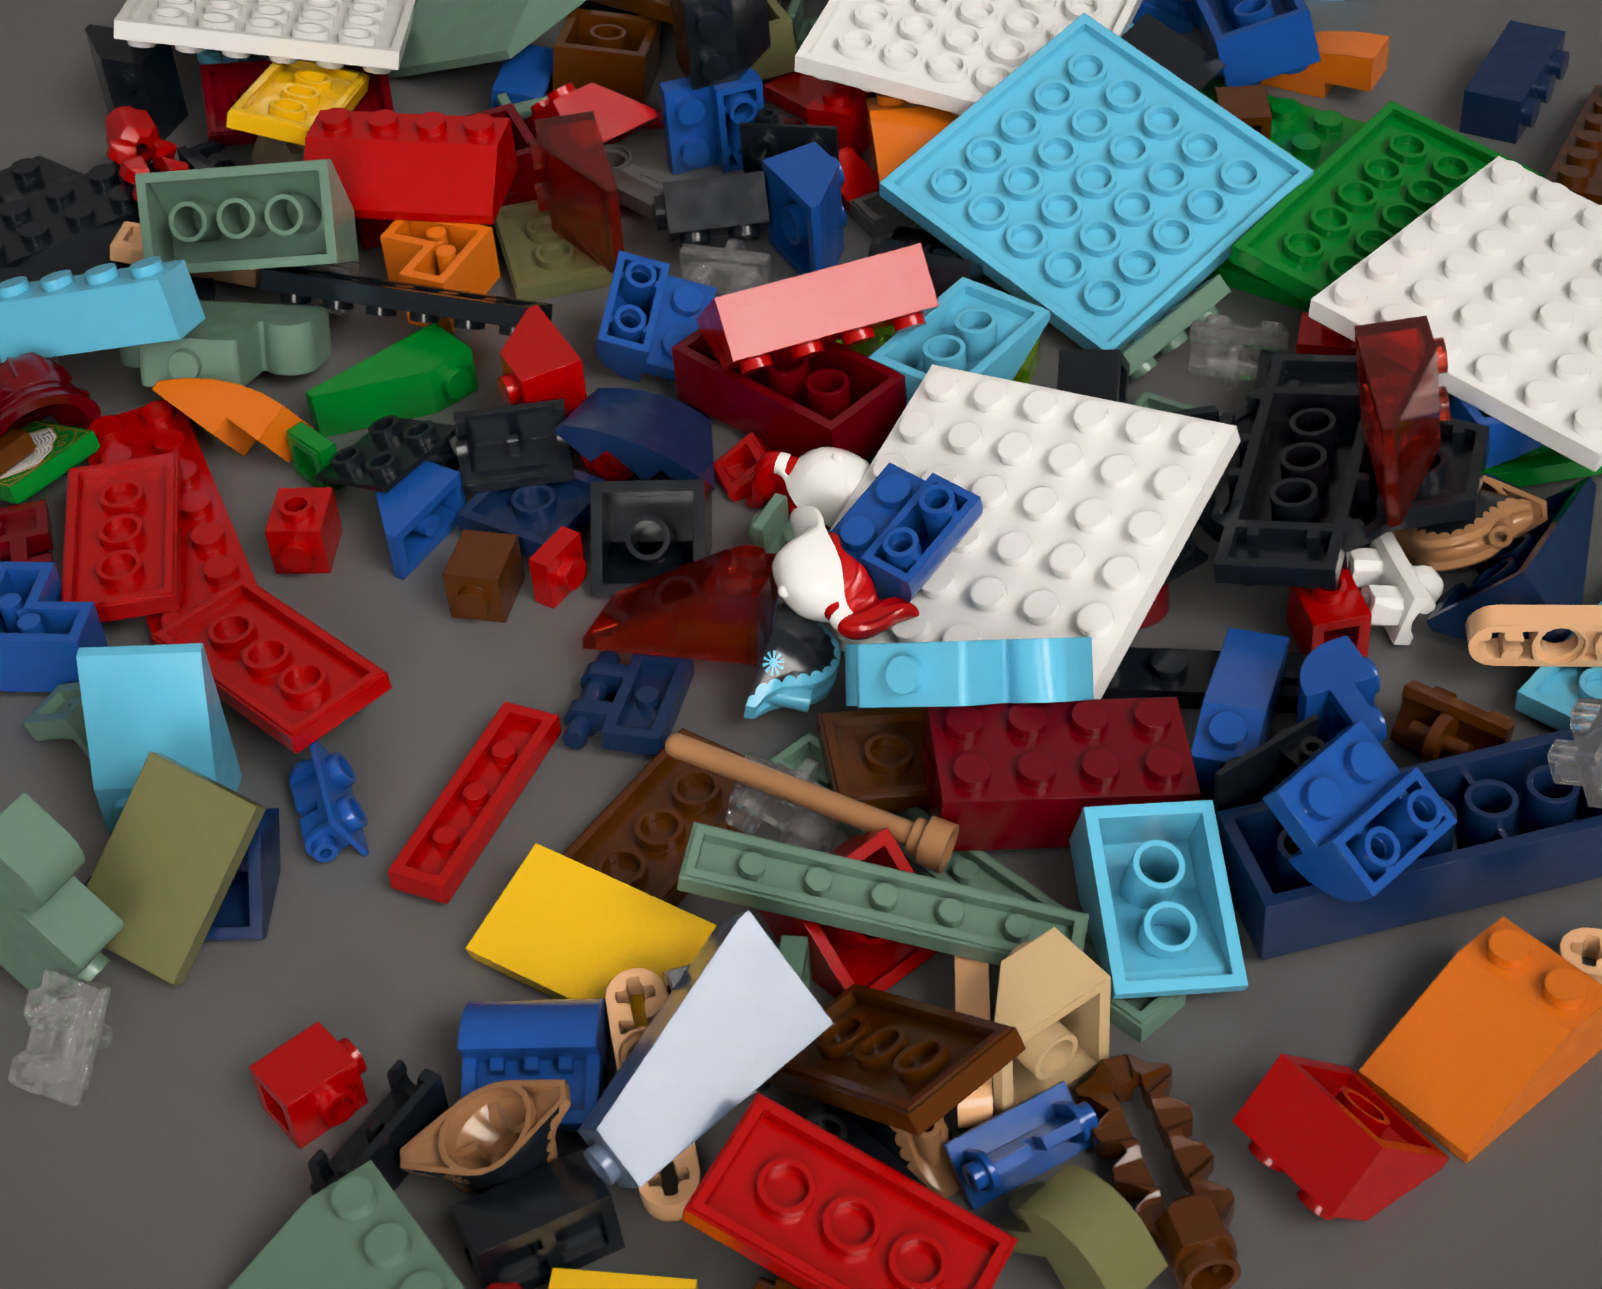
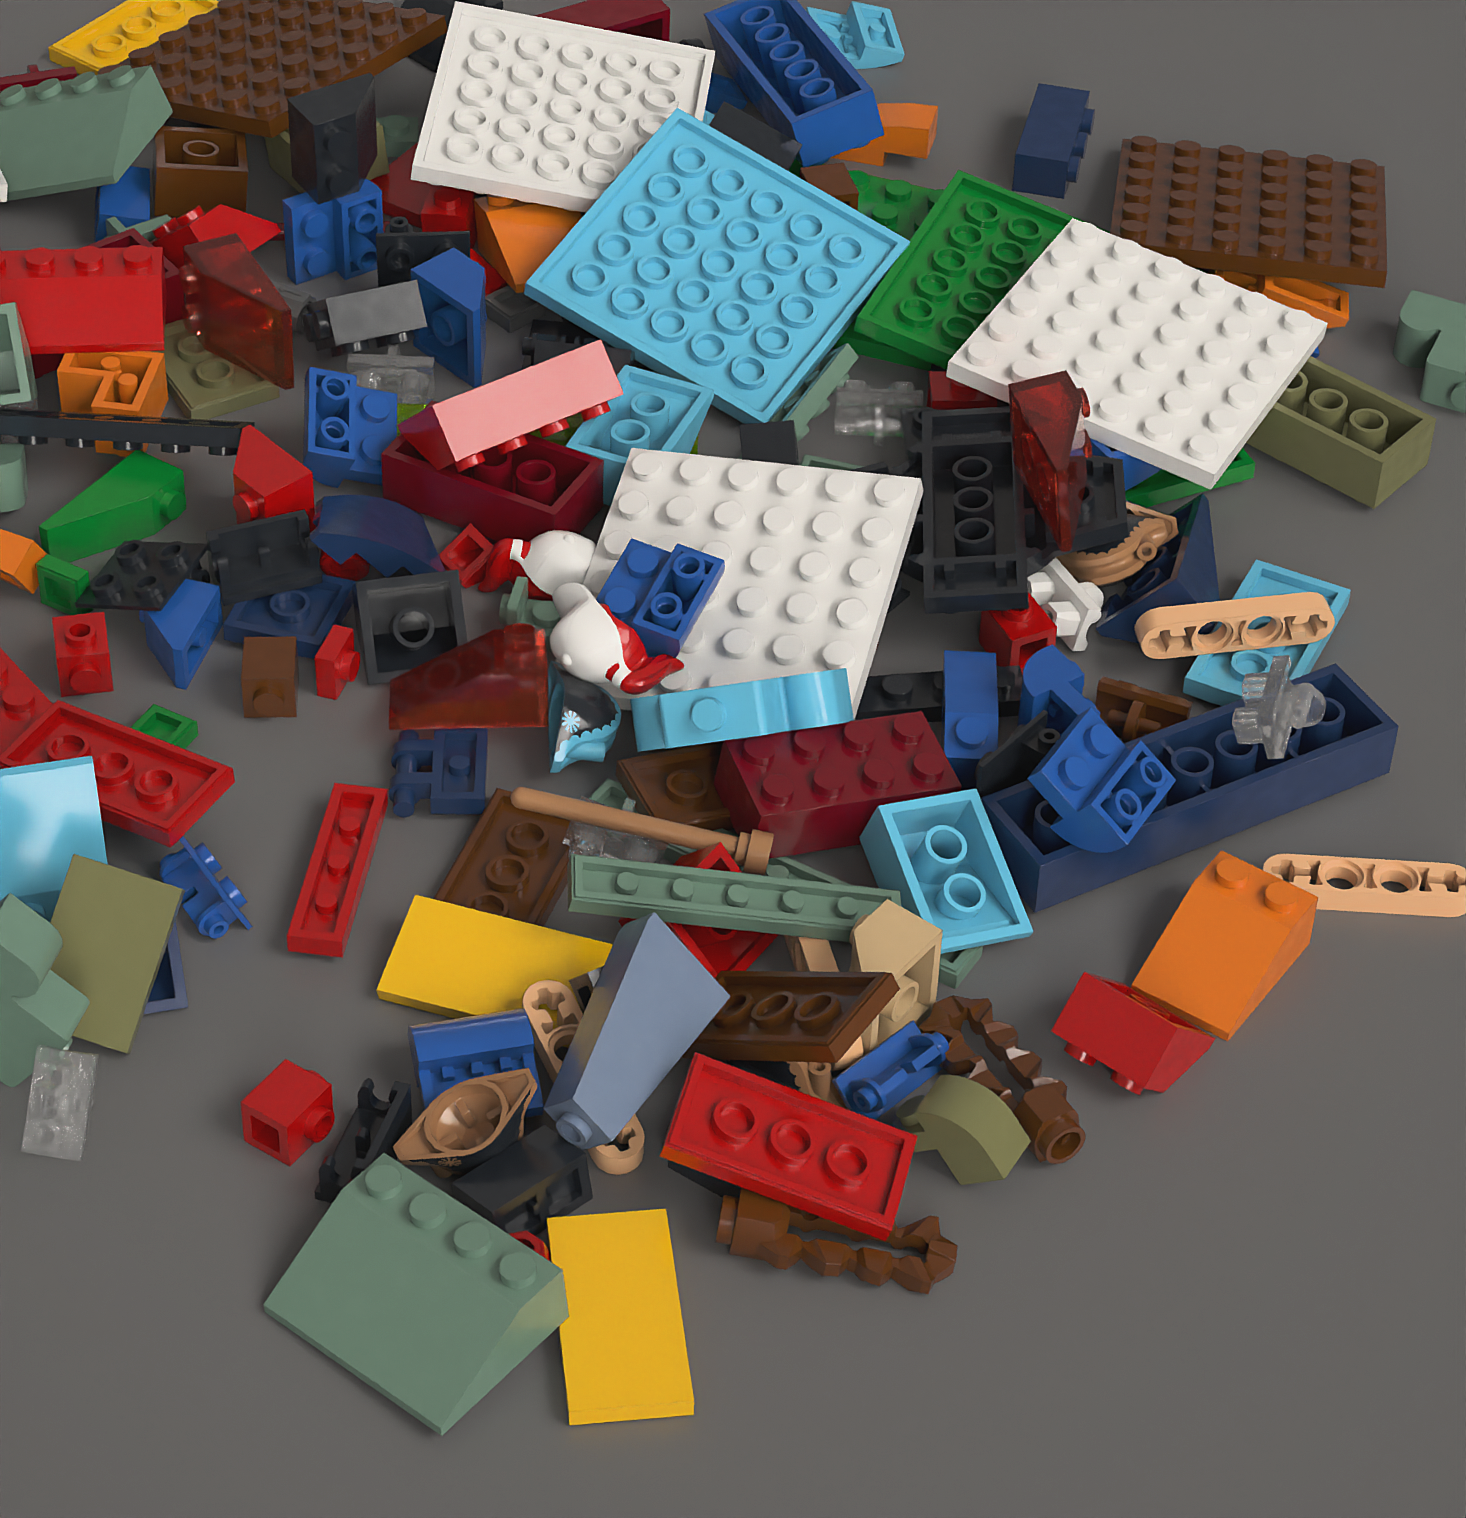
camera: 20 degrees left, 0 degrees up
(358, 623) = (167, 726): none -> green tile

